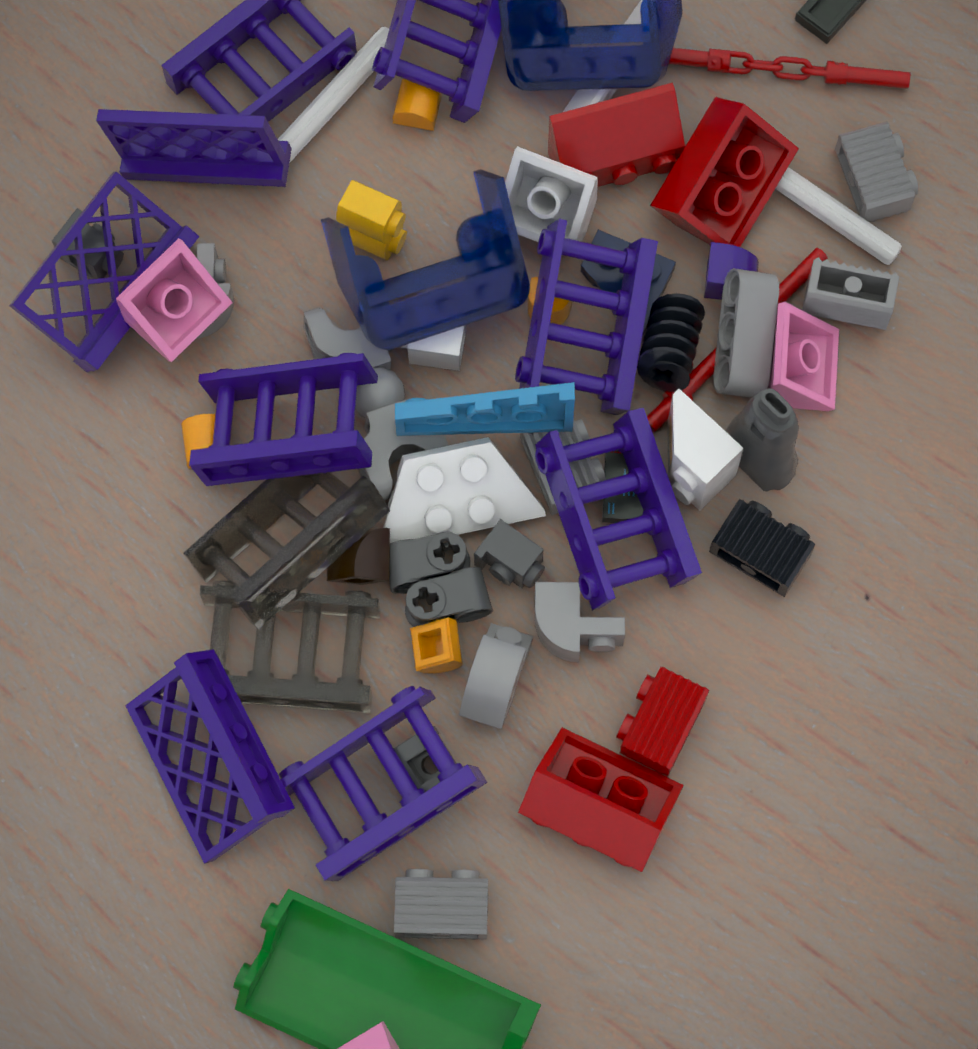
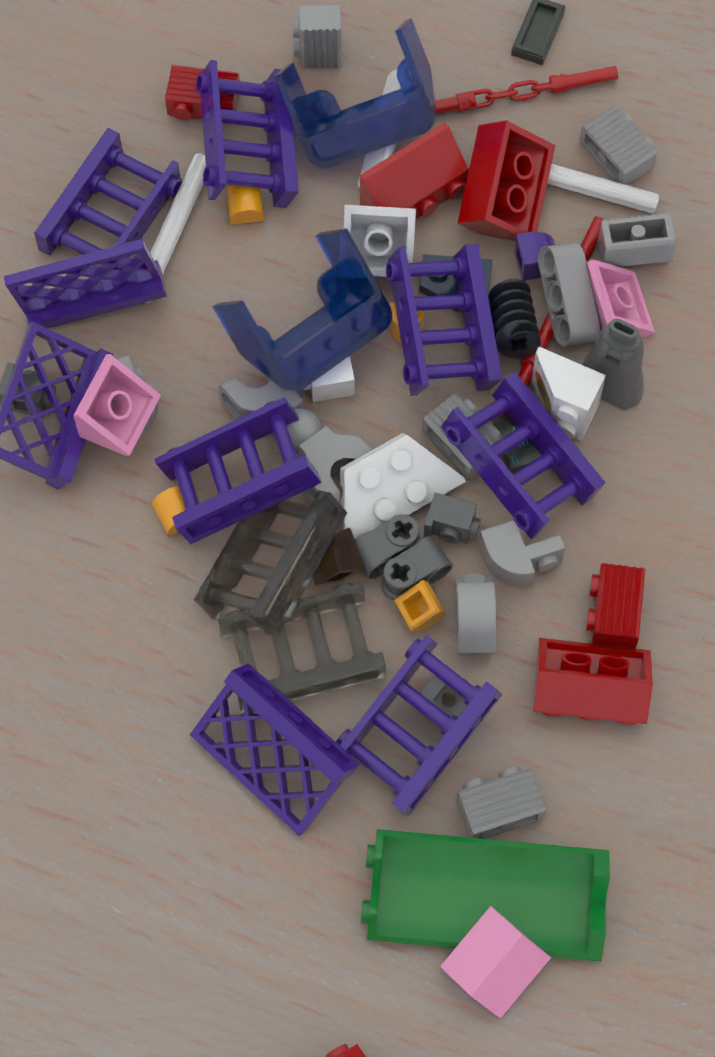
camera: 20 degrees left, 5 degrees down
(372, 220) = (253, 290): yellow brick -> none
(489, 413) = (401, 411): dark azure wing -> none
(762, 546) = (642, 450): black brick -> none

